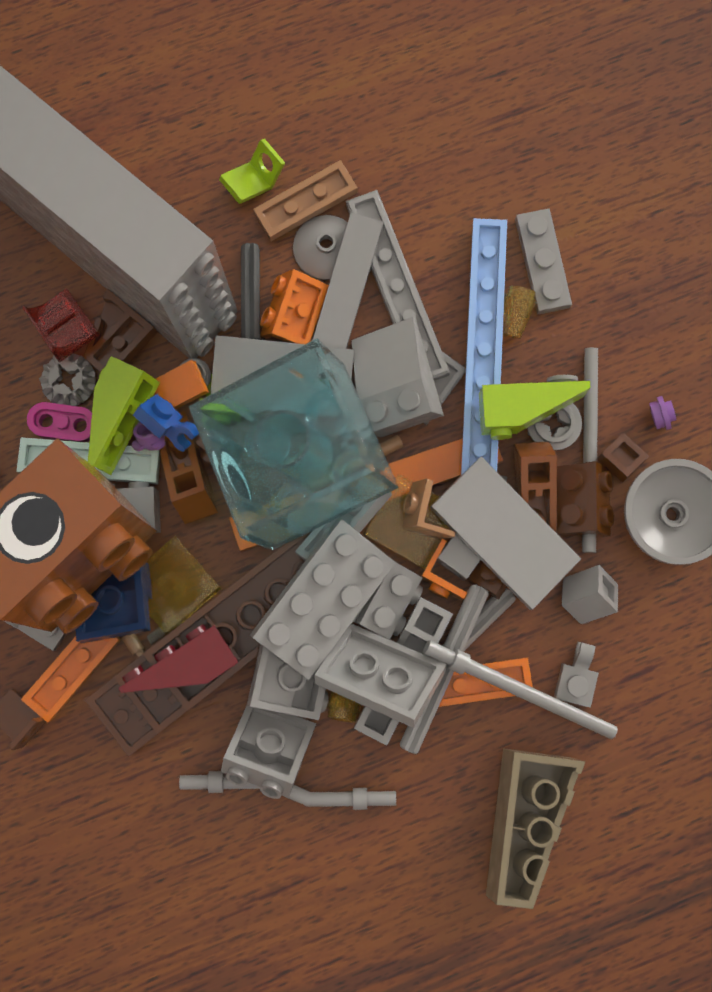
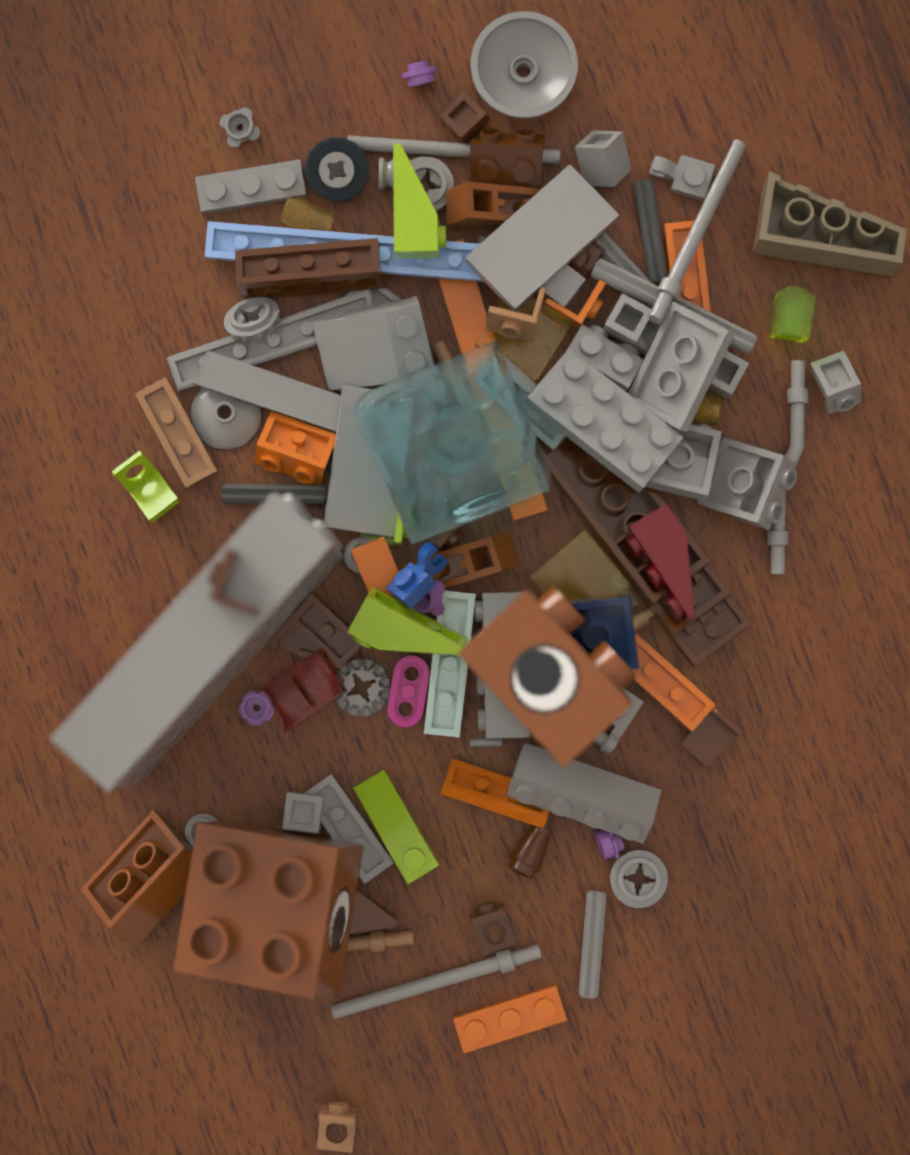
camera: 90 degrees left, 5 degrees up
(44, 275) = (256, 717): none -> medium lavender plate
(115, 185) = (220, 578): none -> reddish brown bracket
(375, 839) = (837, 382): none -> light grey bracket
(426, 268) = (261, 310): none -> light grey gear
(442, 791) = (792, 315): none -> clear neon green brick
(465, 312) = (309, 269): none -> reddish brown fence
(520, 645) = (650, 230): none -> dark grey axle
(573, 346) = (330, 160): none -> black wheel
(606, 241) = (235, 118): none -> light grey plate

